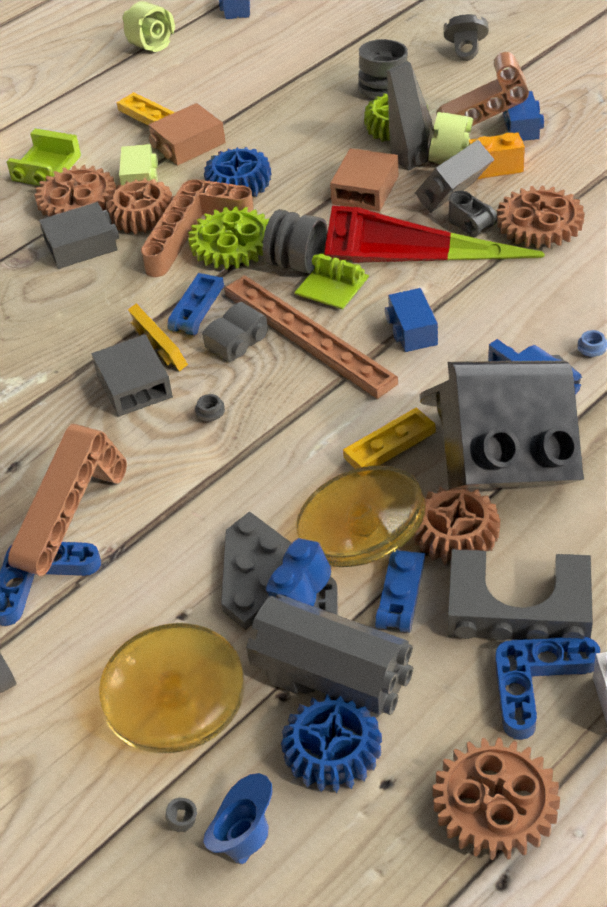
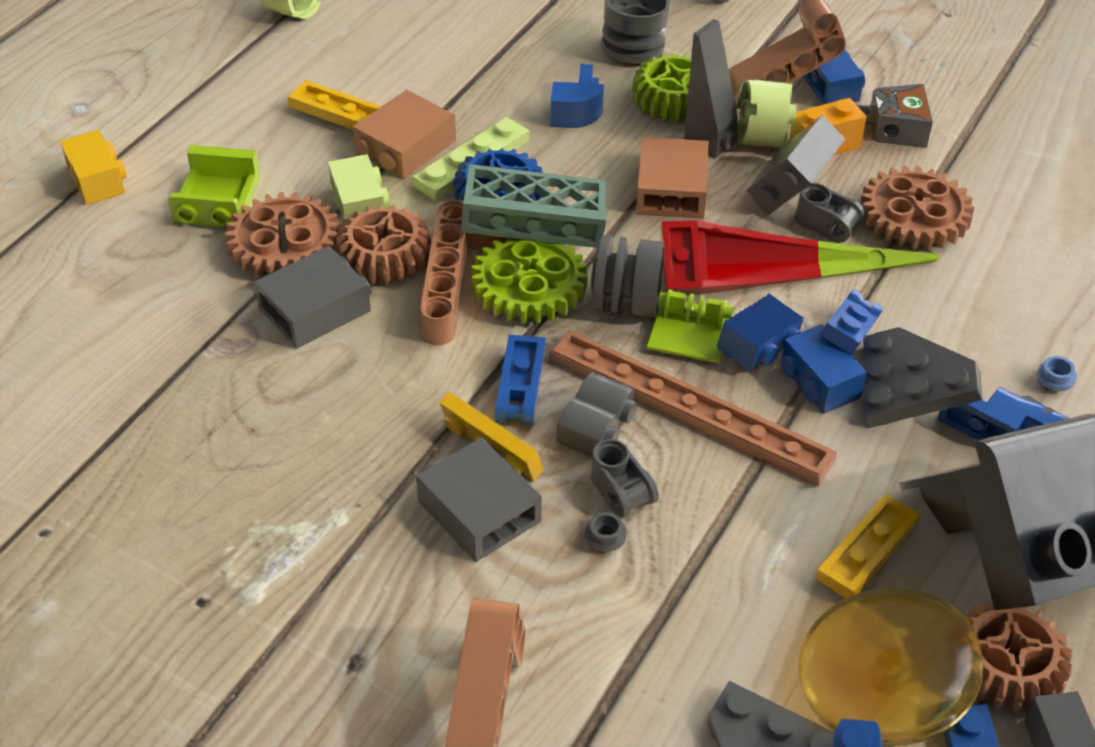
camera: 20 degrees left, 0 degrees up
(233, 373) = (621, 478): none -> dark grey piece
(238, 195) = (540, 220): none -> sand green fence
(260, 140) = (438, 177): none -> yellowish green plate
(319, 122) = (577, 103): none -> blue brick
(370, 290) = (758, 332): none -> blue brick
(446, 289) = (851, 322): none -> blue plate
(472, 331) = (913, 377): none -> dark grey plate
(557, 149) = (899, 115): none -> dark grey torso

